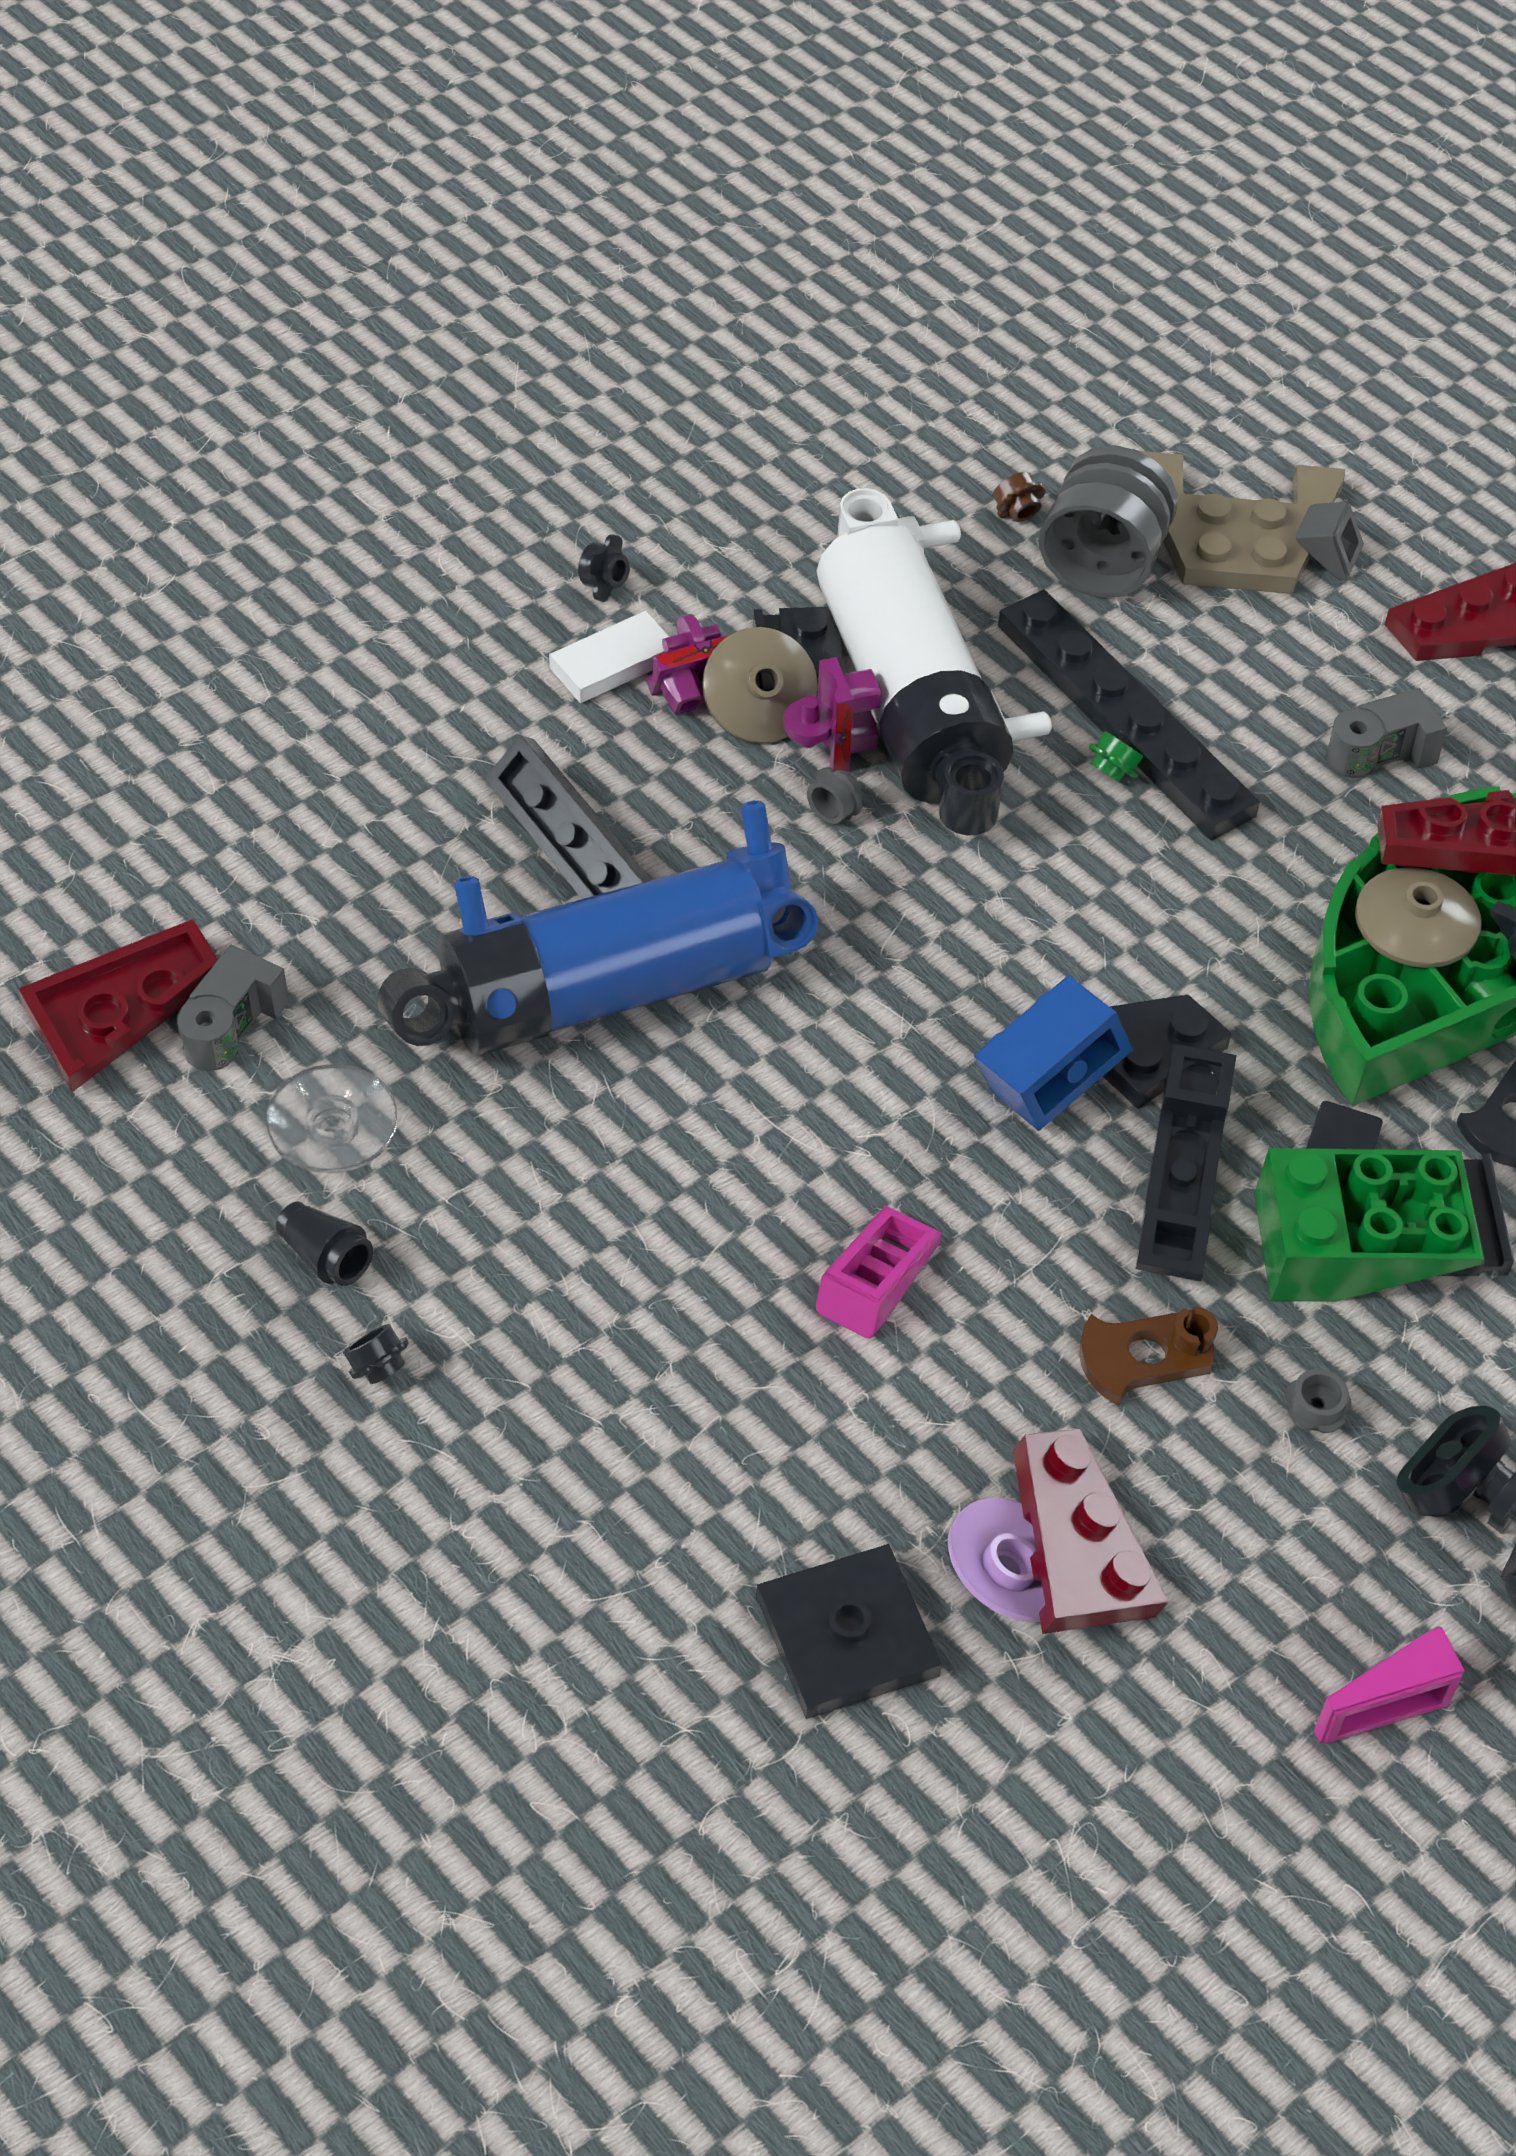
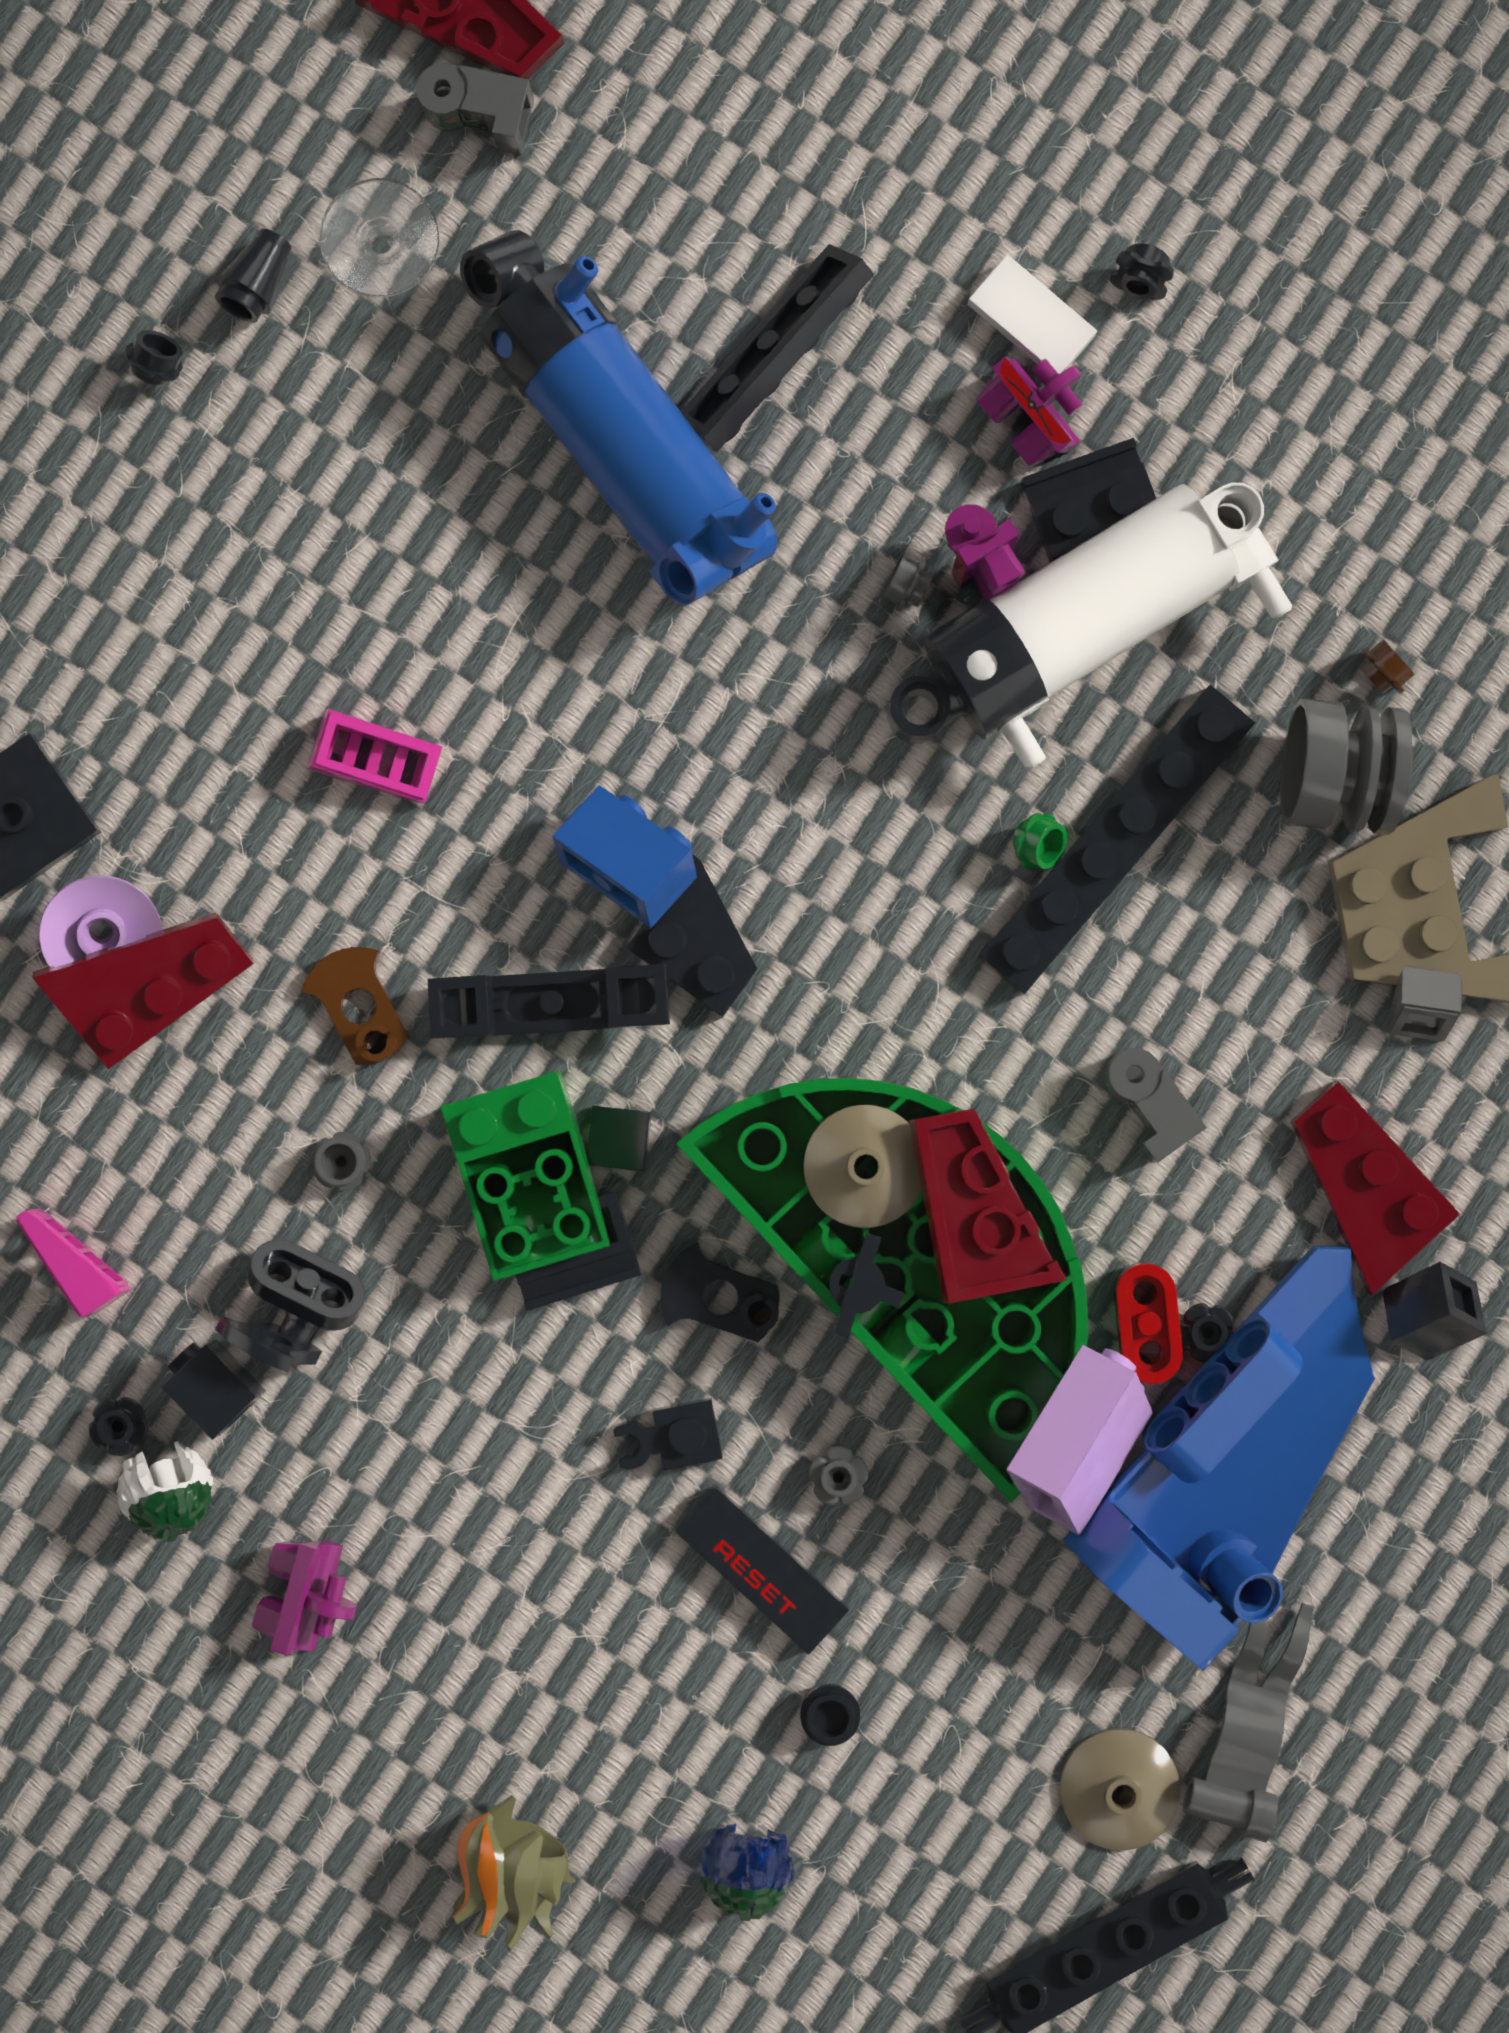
camera: 80 degrees right, 35 degrees up
(732, 689) = (1042, 466): dark tan dish -> none

